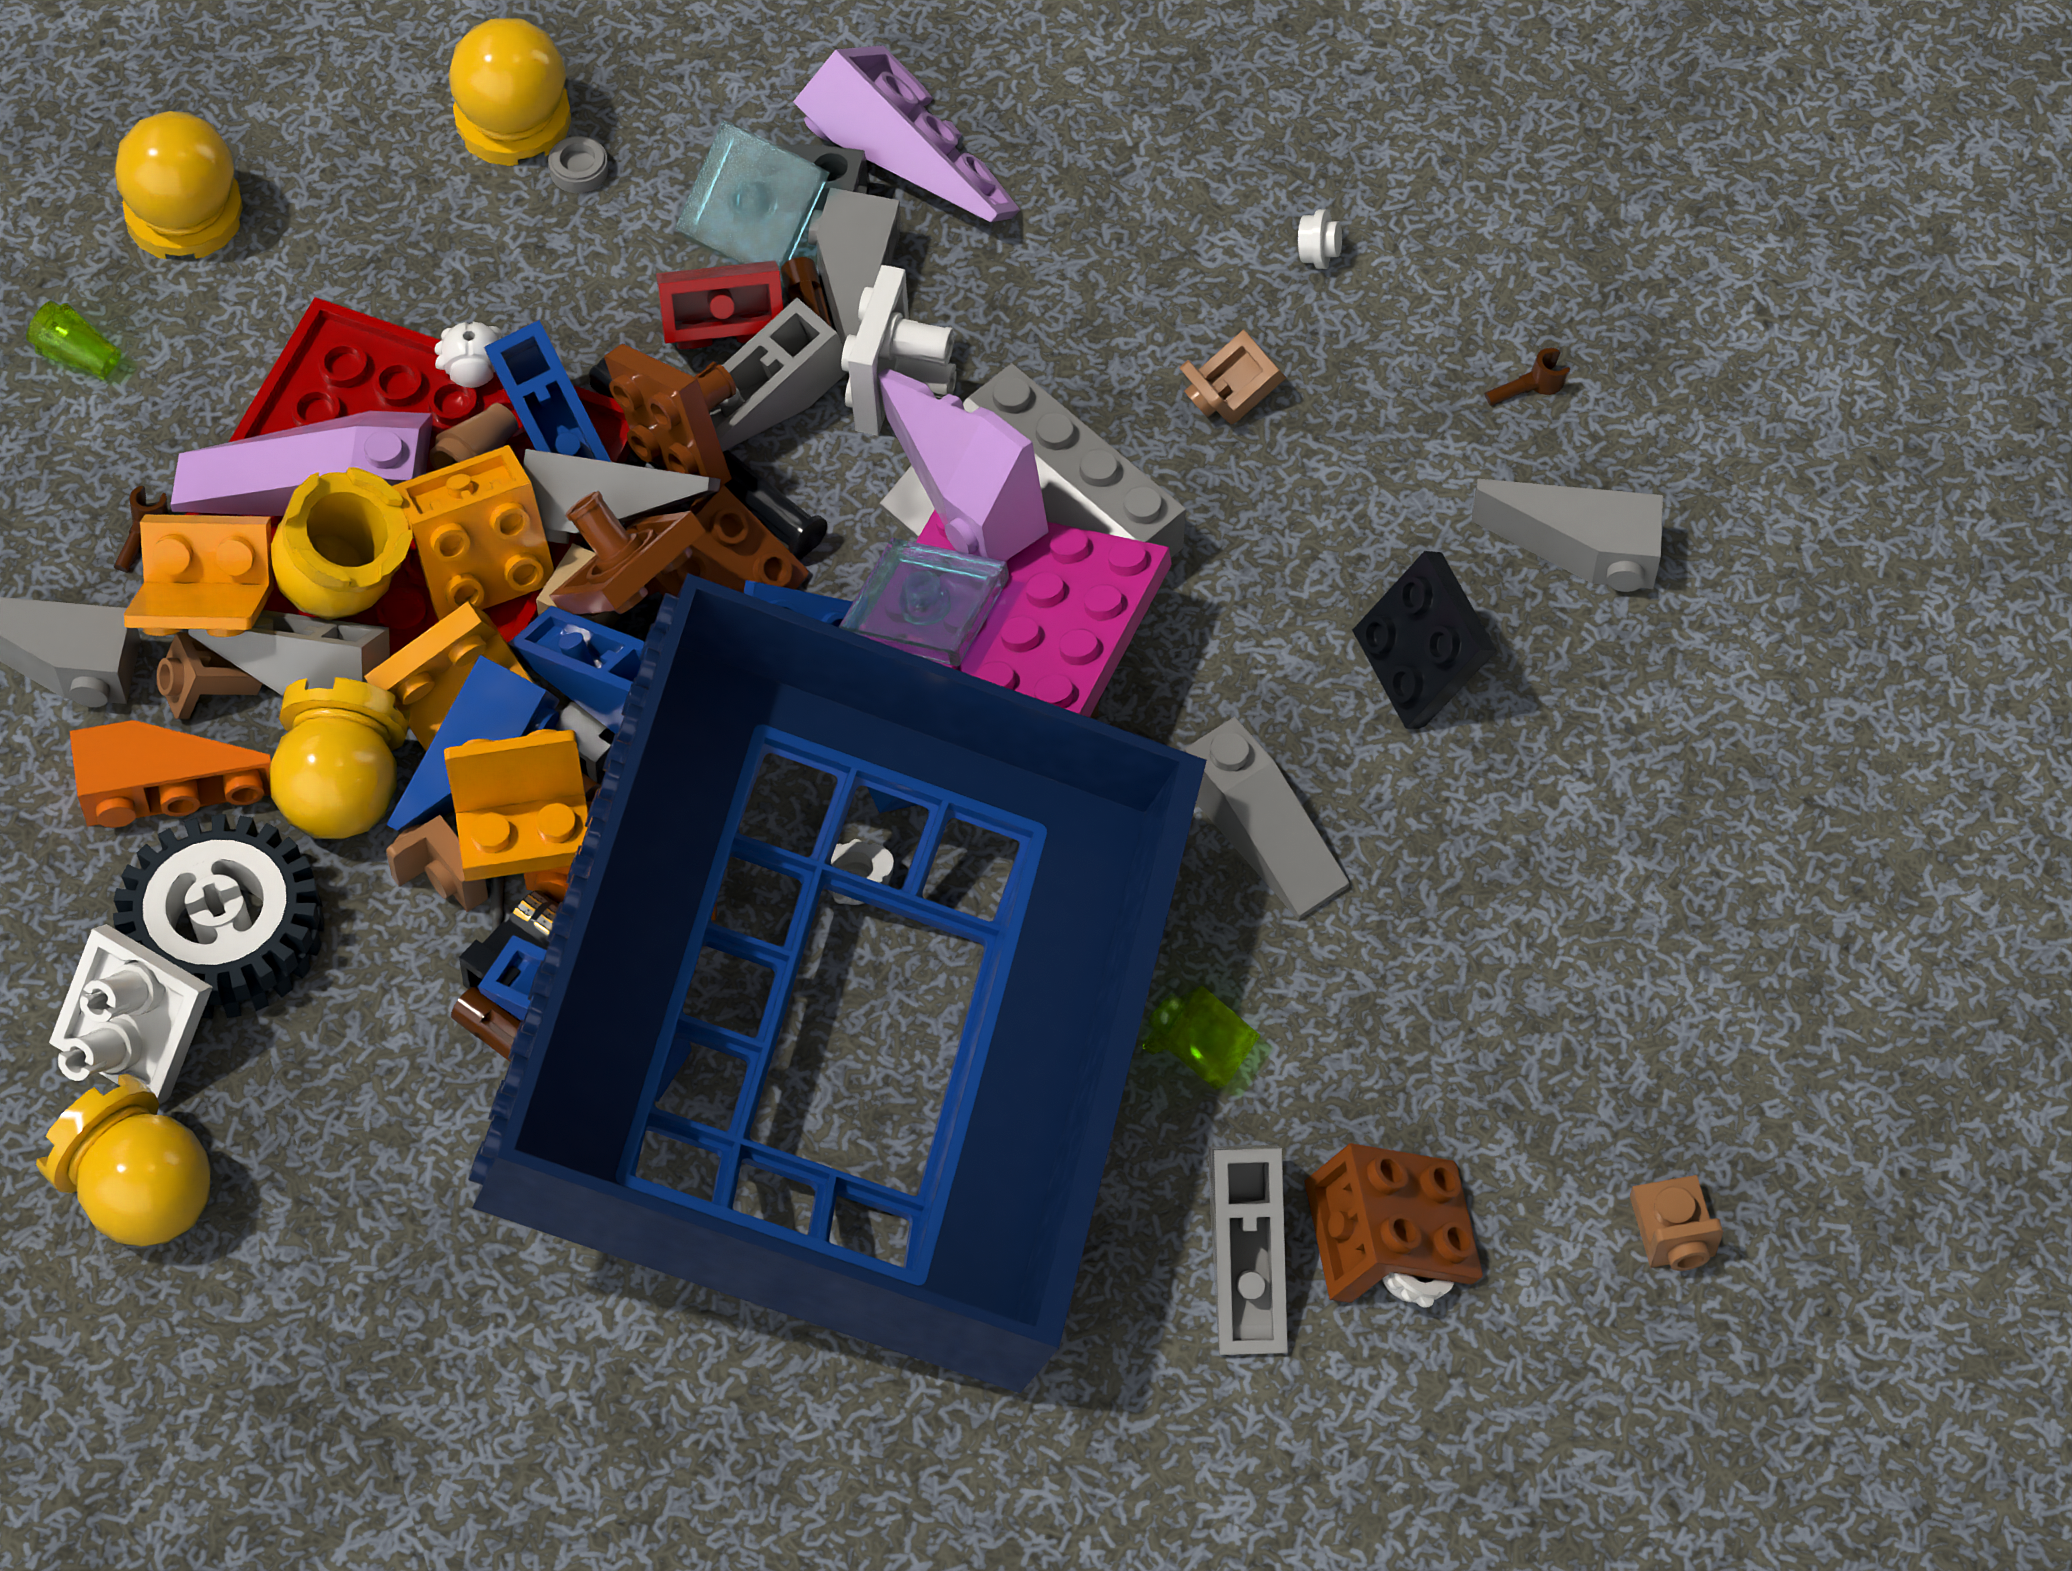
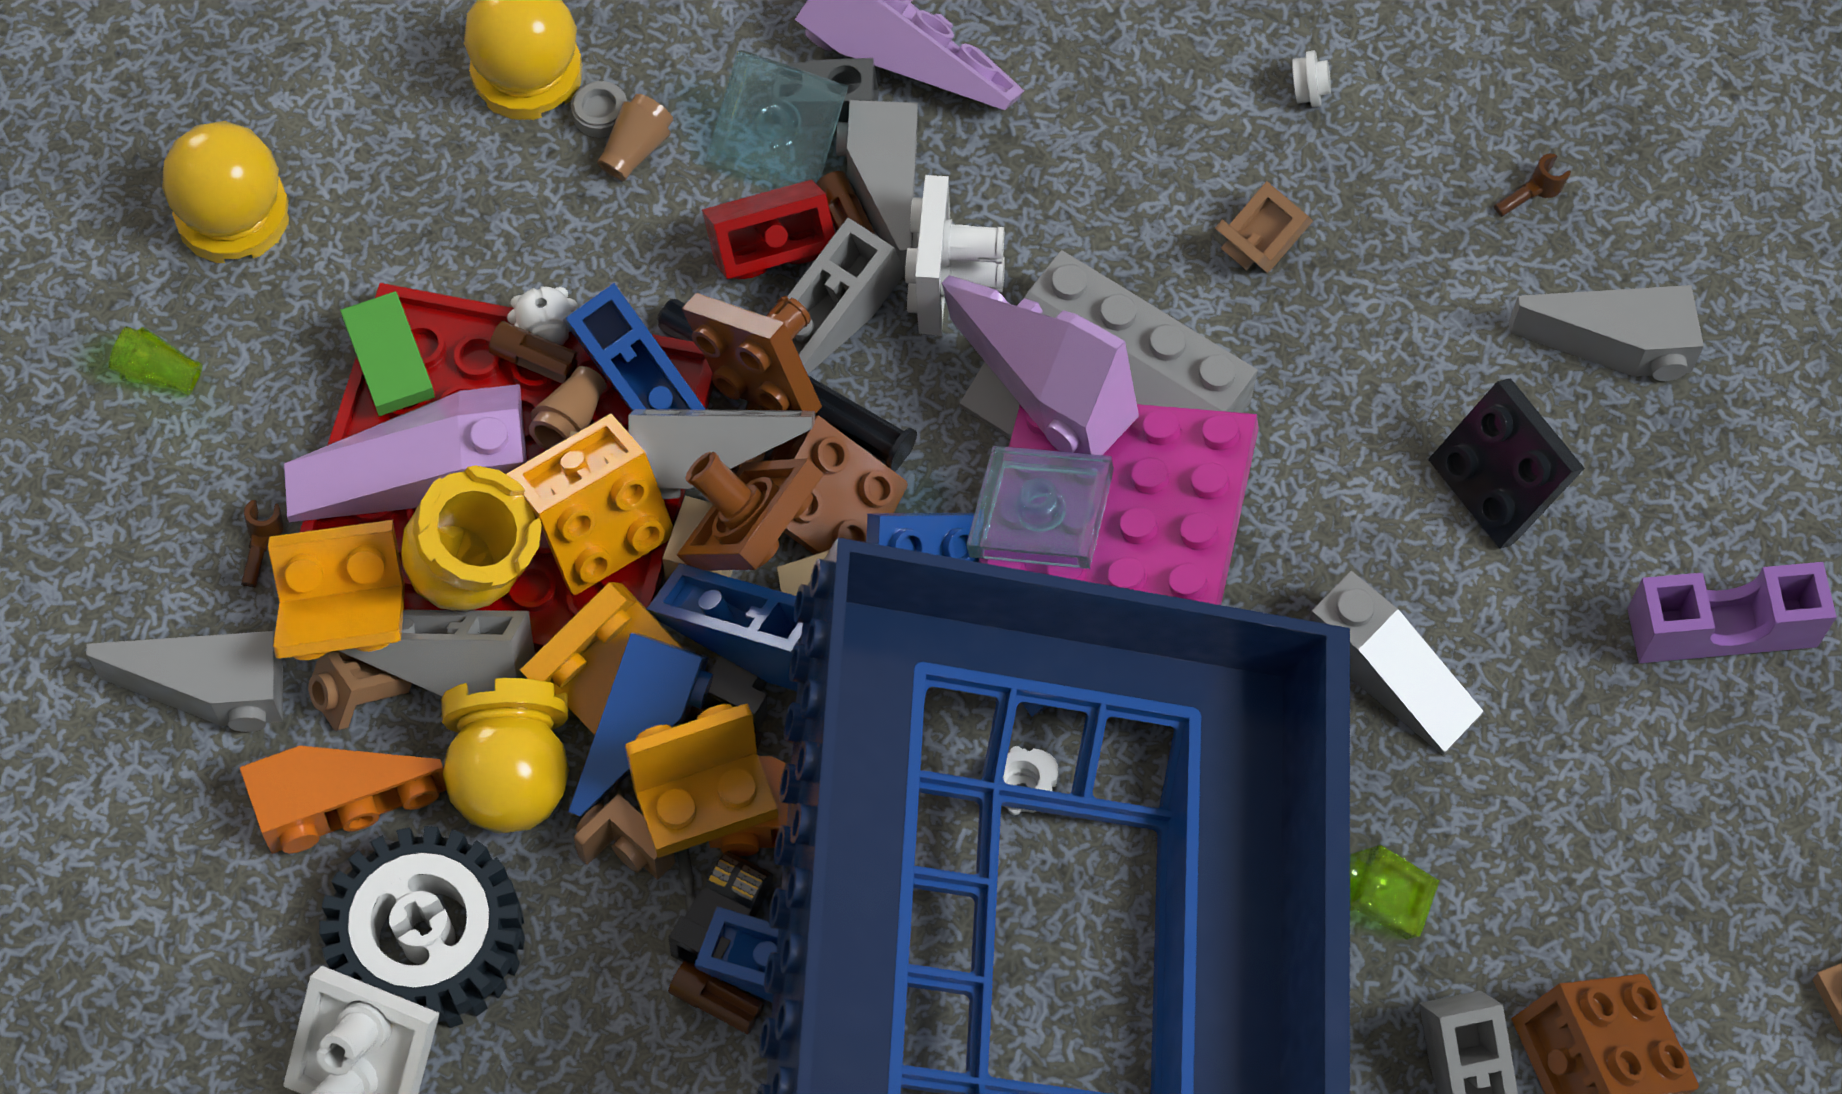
camera: 10 degrees left, 5 degrees up
(305, 364) = (387, 353): none -> bright green tile
(450, 383) = (533, 352): none -> reddish brown piece
(608, 192) = (635, 135): none -> medium nougat cone
(1670, 831) = (1774, 612): none -> medium lavender arch

